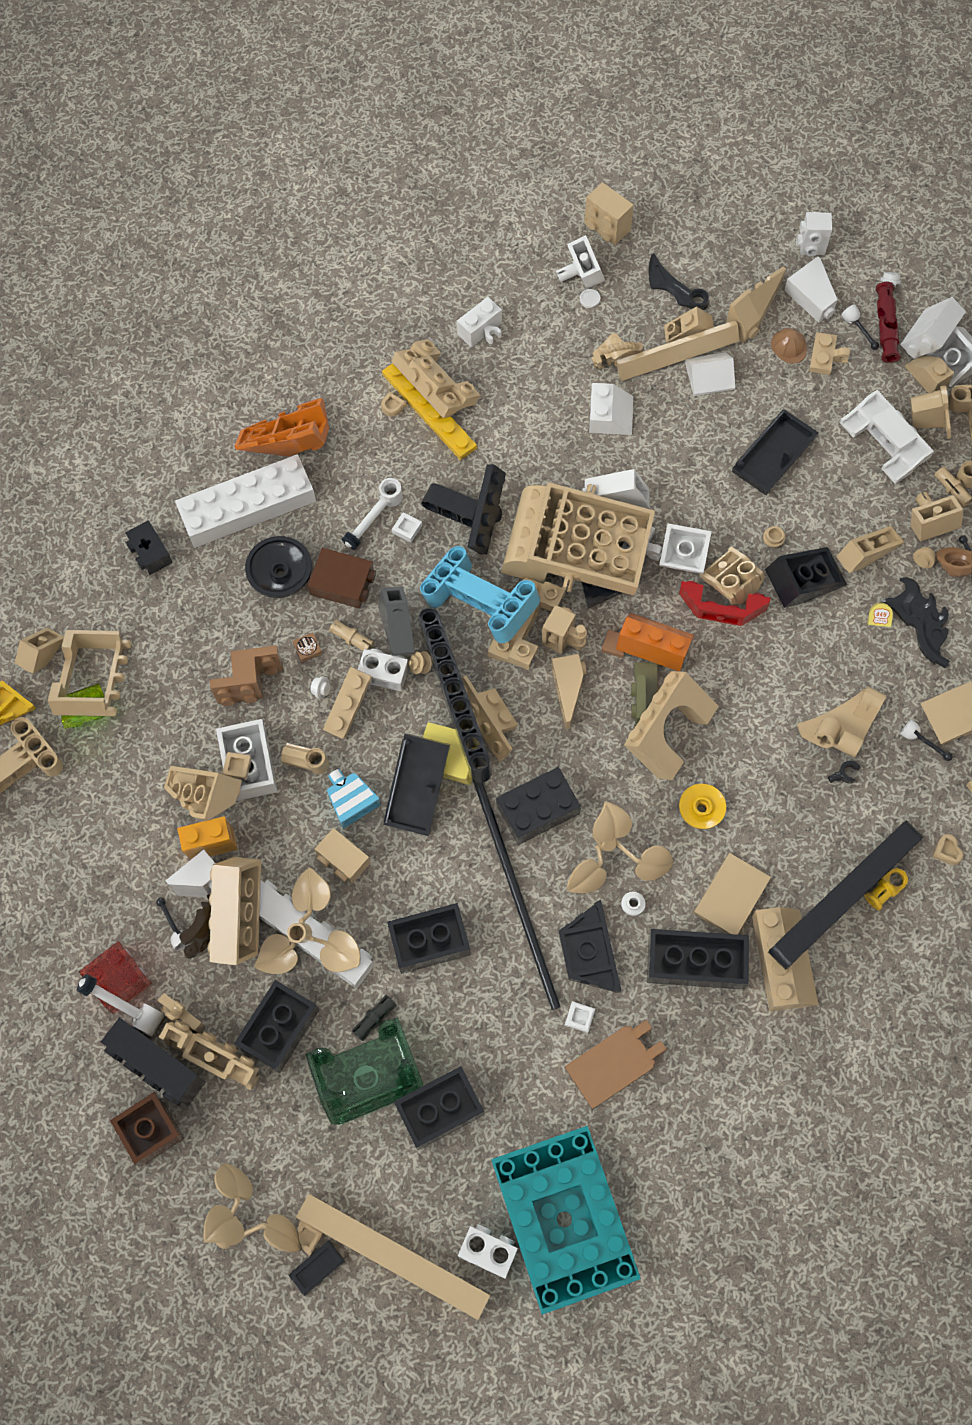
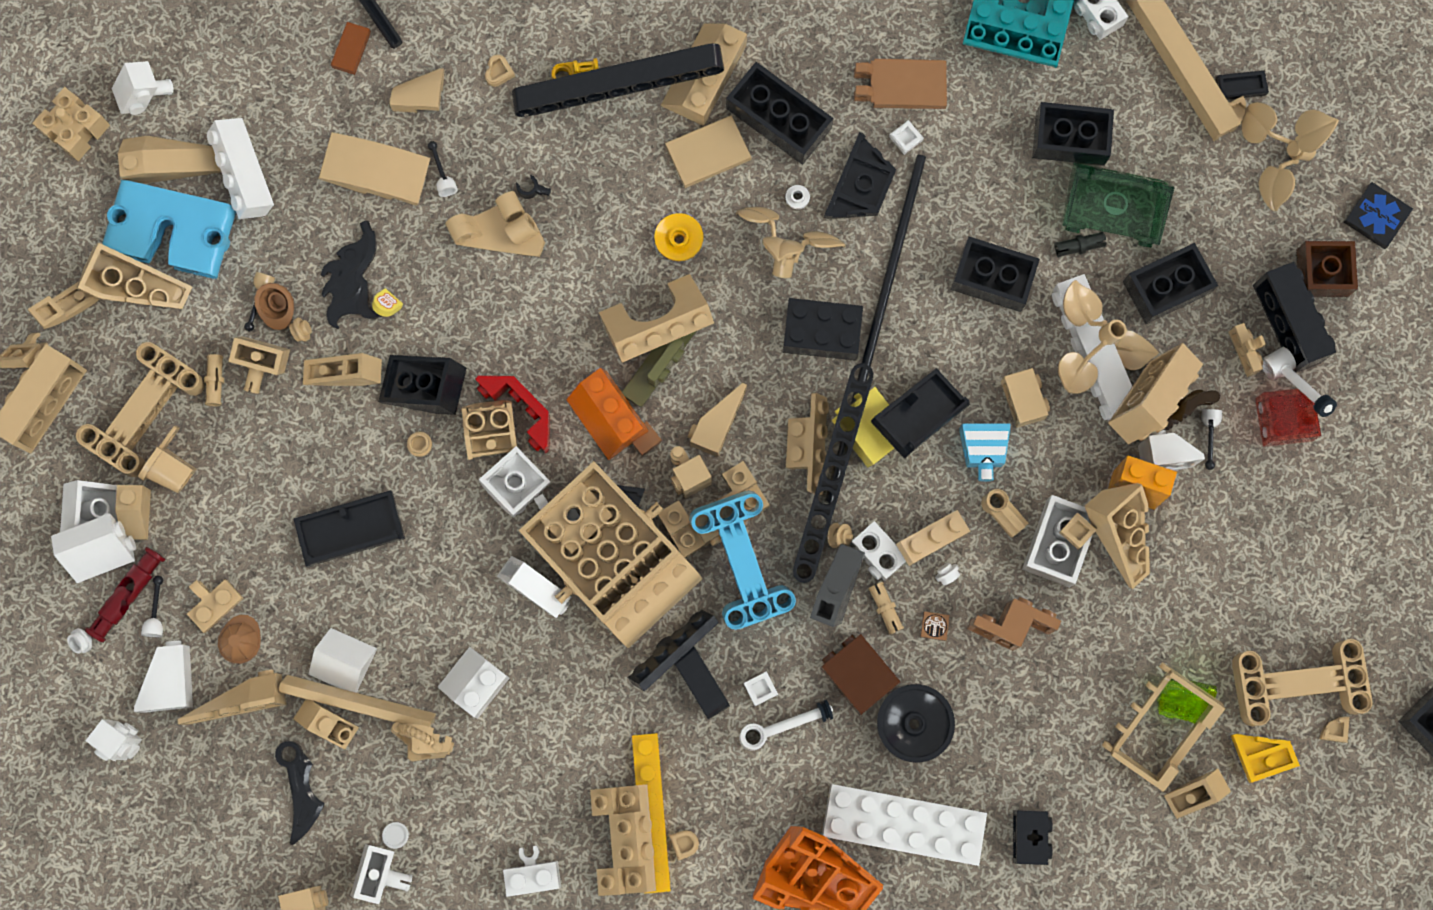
camera: 150 degrees left, 10 degrees up
(126, 1220) = (1378, 215): none -> black tile
(210, 1054) = (1239, 292): tan bracket -> none
(892, 432) = (225, 469): white bracket -> none

